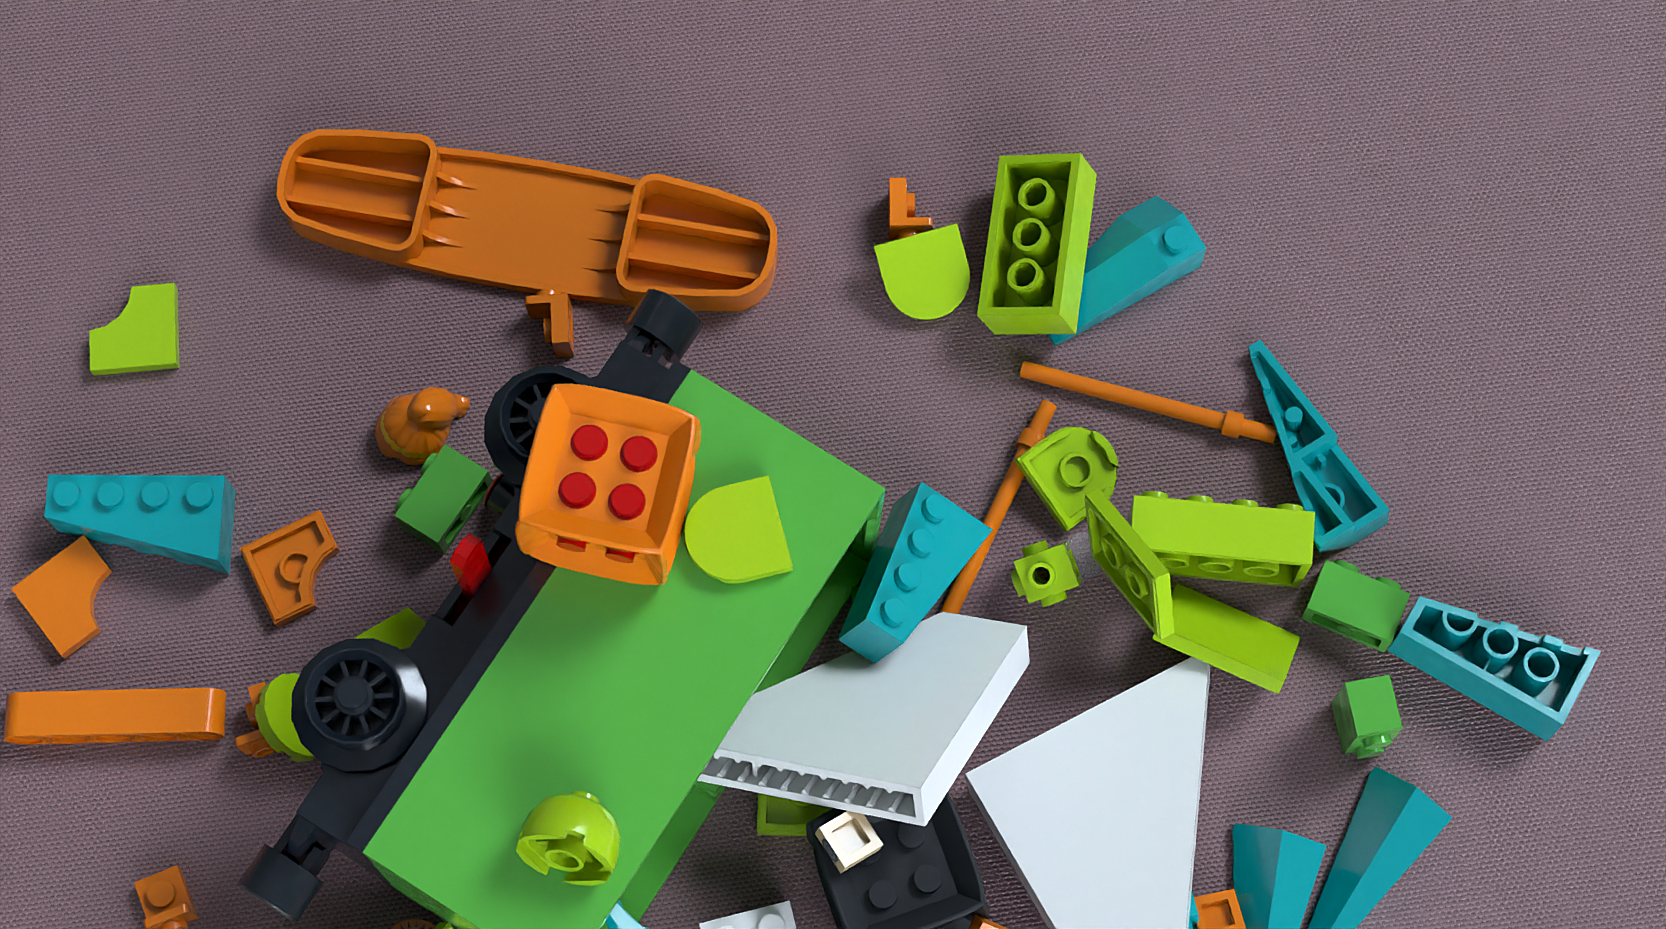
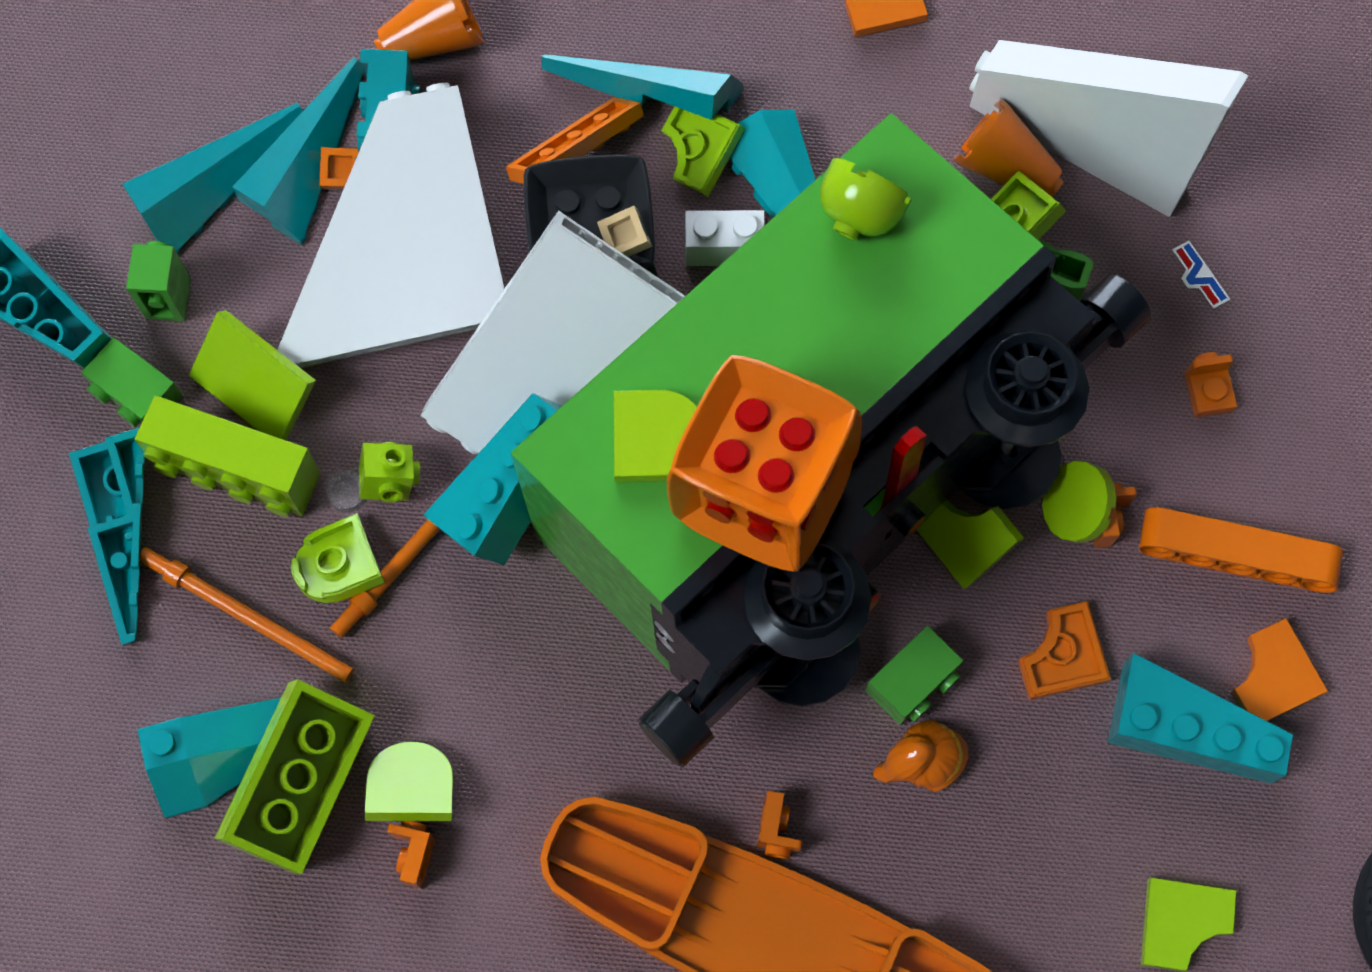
camera: 170 degrees left, 0 degrees up
(1129, 563) = (313, 434): lime tile -> none

